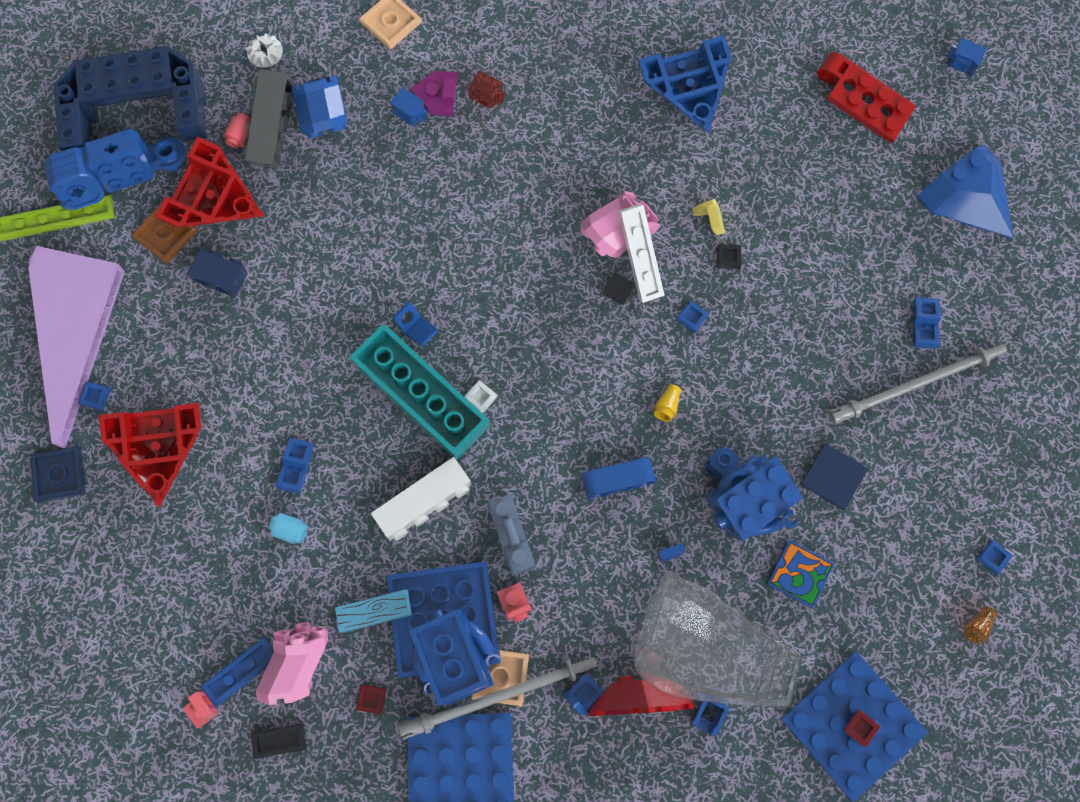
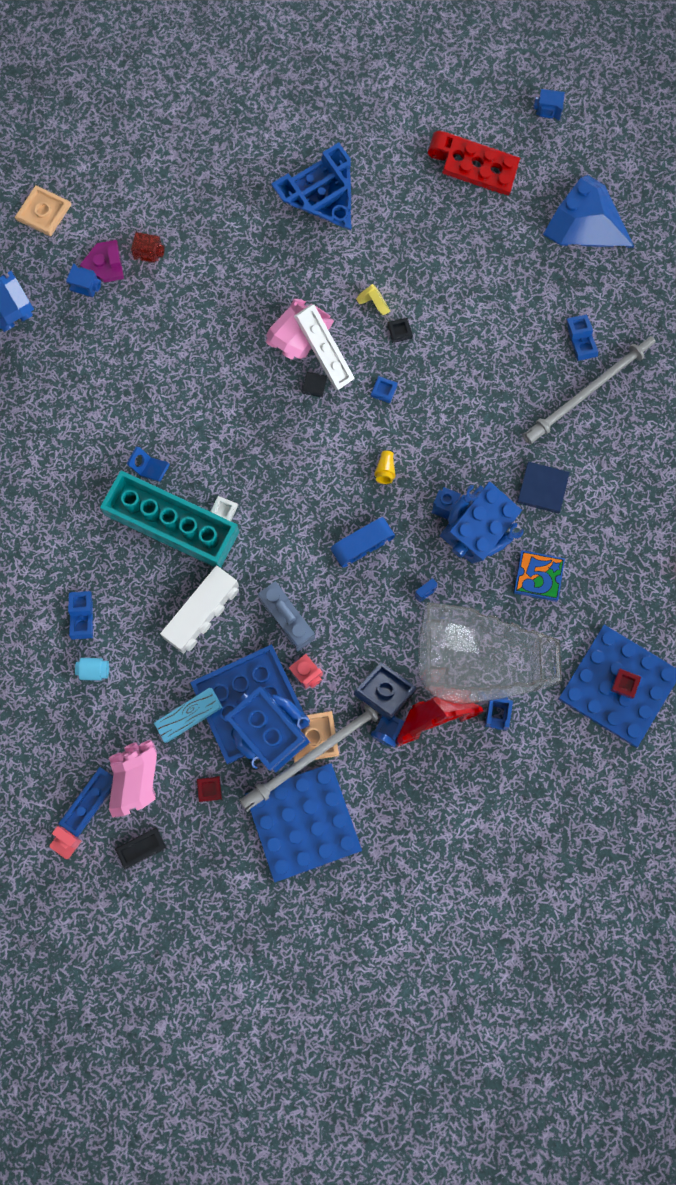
camera: 15 degrees left, 0 degrees up
(592, 651) = (385, 691): none -> dark blue tile

